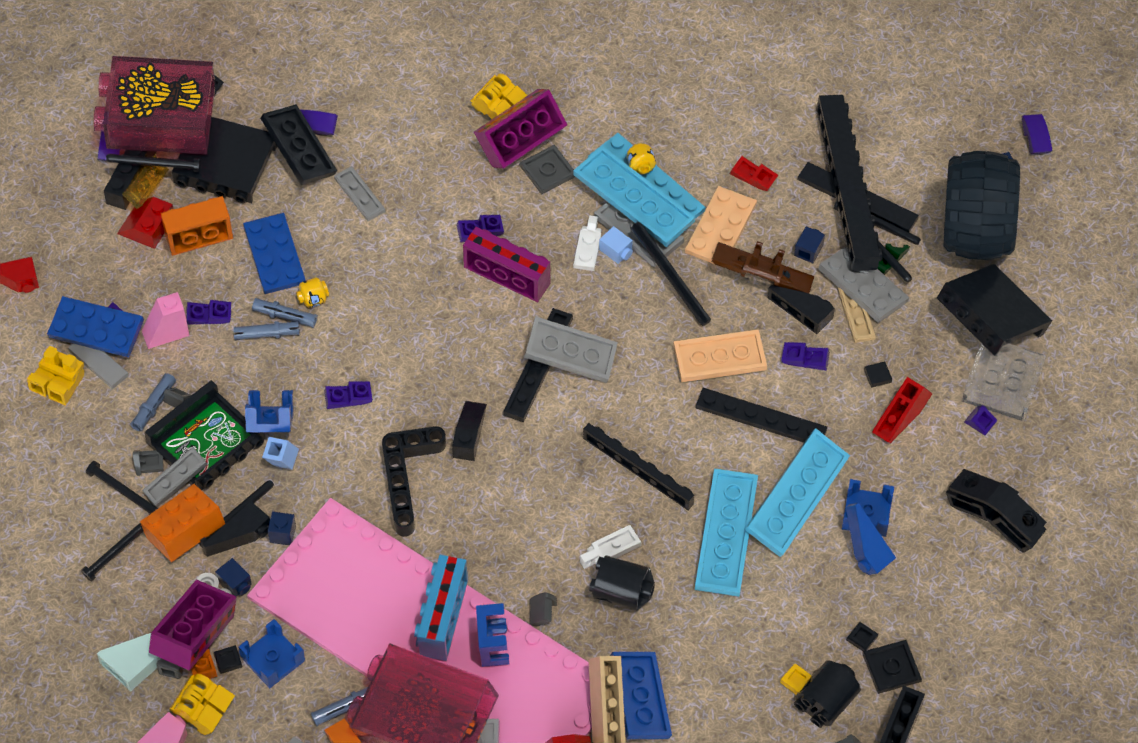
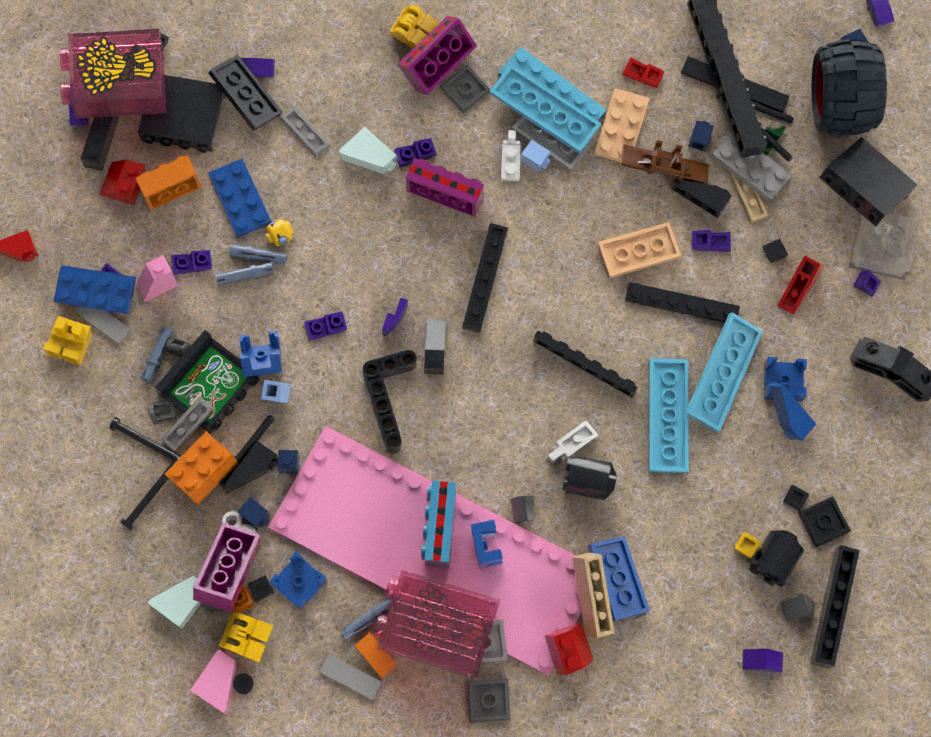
camera: 10 degrees left, 15 degrees up
(144, 184) = (116, 144): clear yellow plate -> none
(153, 161) = (121, 126): black bar -> none
(426, 396) = (393, 320): none -> dark purple slope
(427, 221) = (368, 152): none -> light aqua slope
(570, 349) = (511, 262): light grey plate -> none
(641, 157) = (546, 71): yellow head -> none
(671, 274) = (587, 179): black axle -> none

